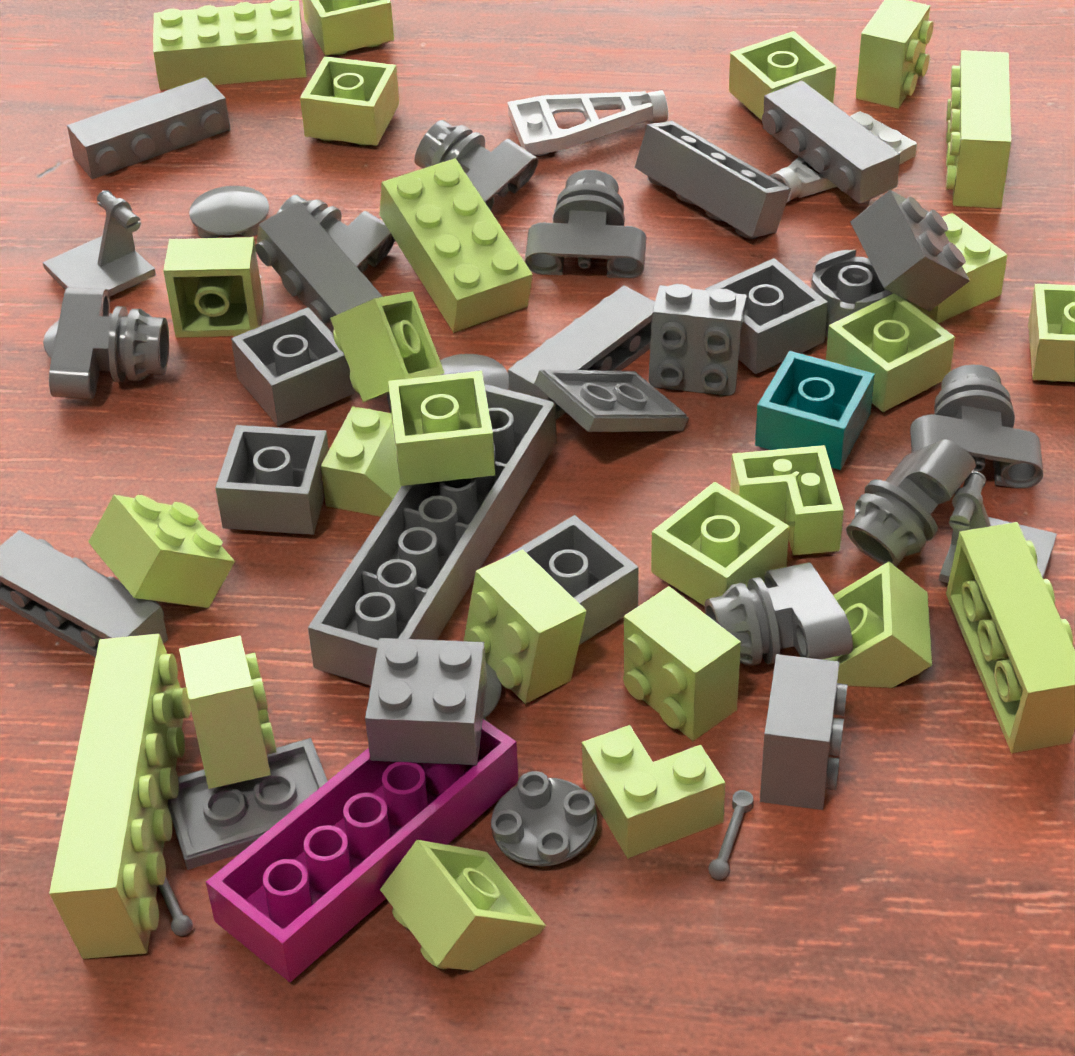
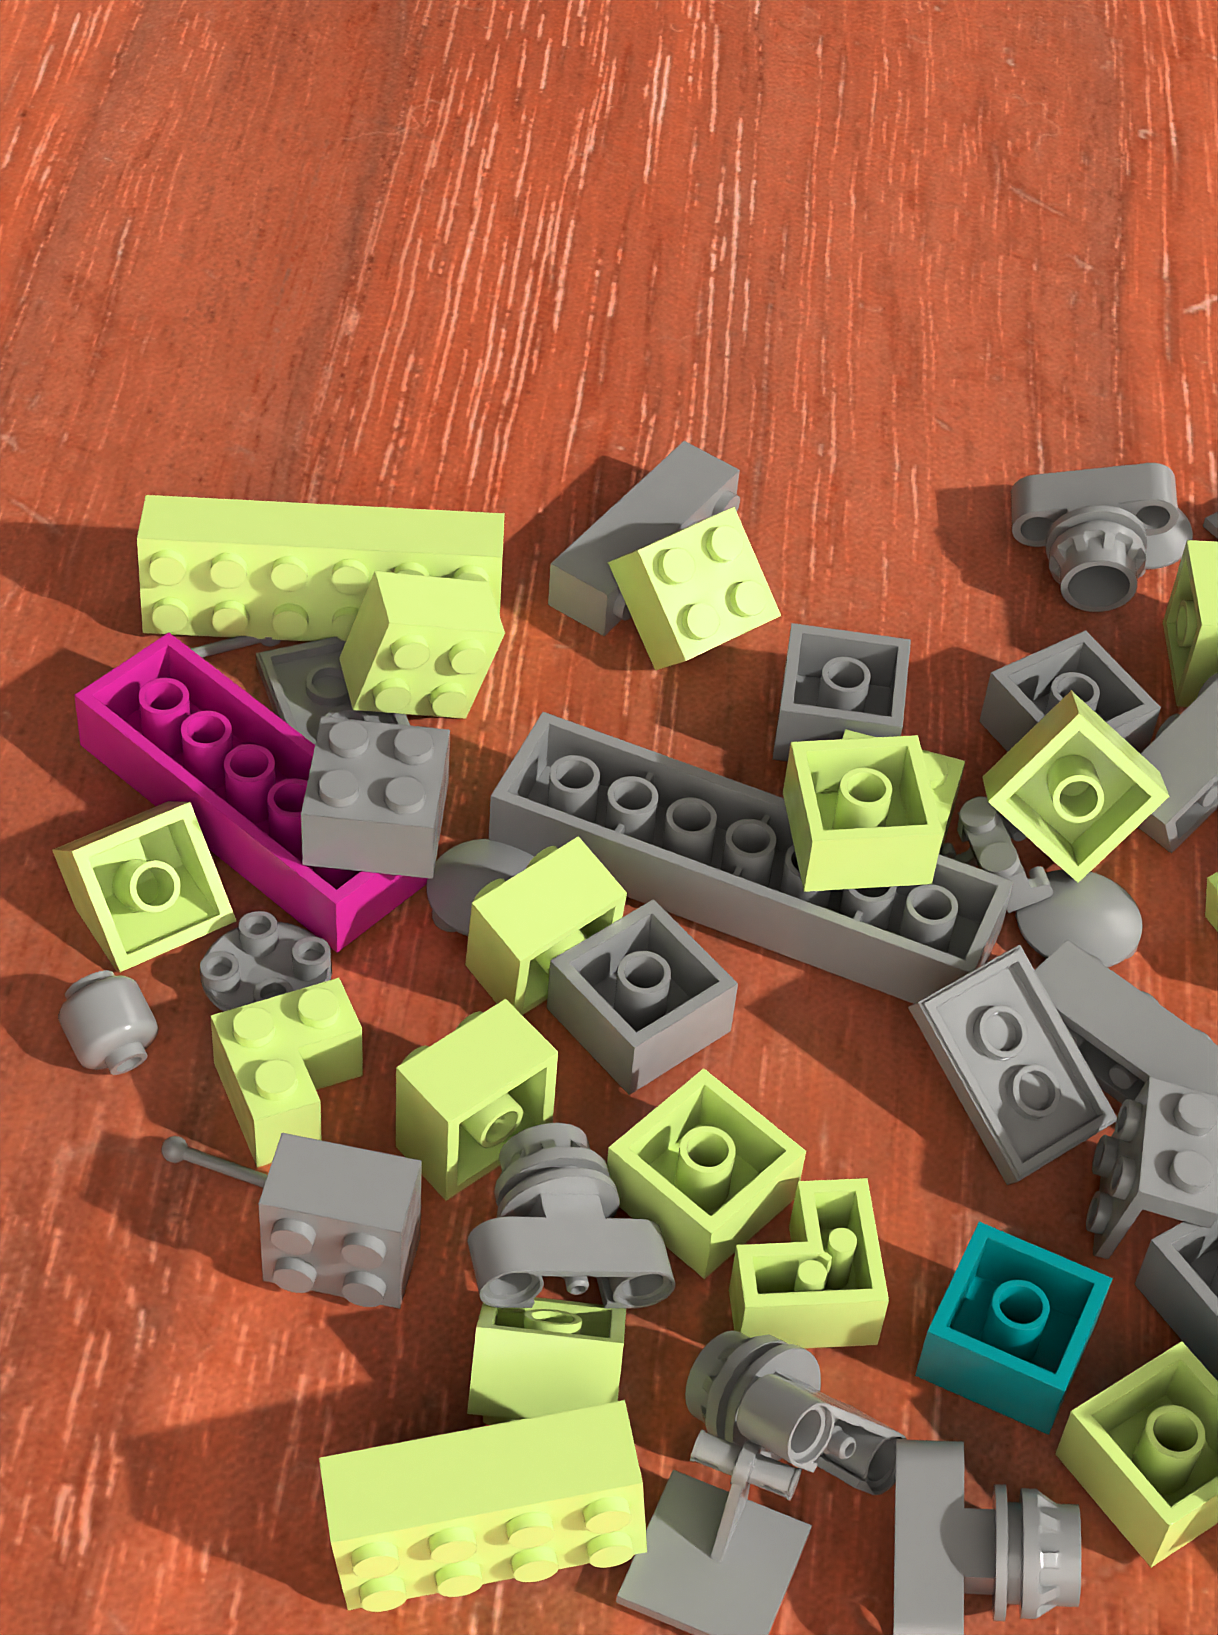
camera: 85 degrees right, 5 degrees up
(614, 911) = (108, 1022): none -> light grey head

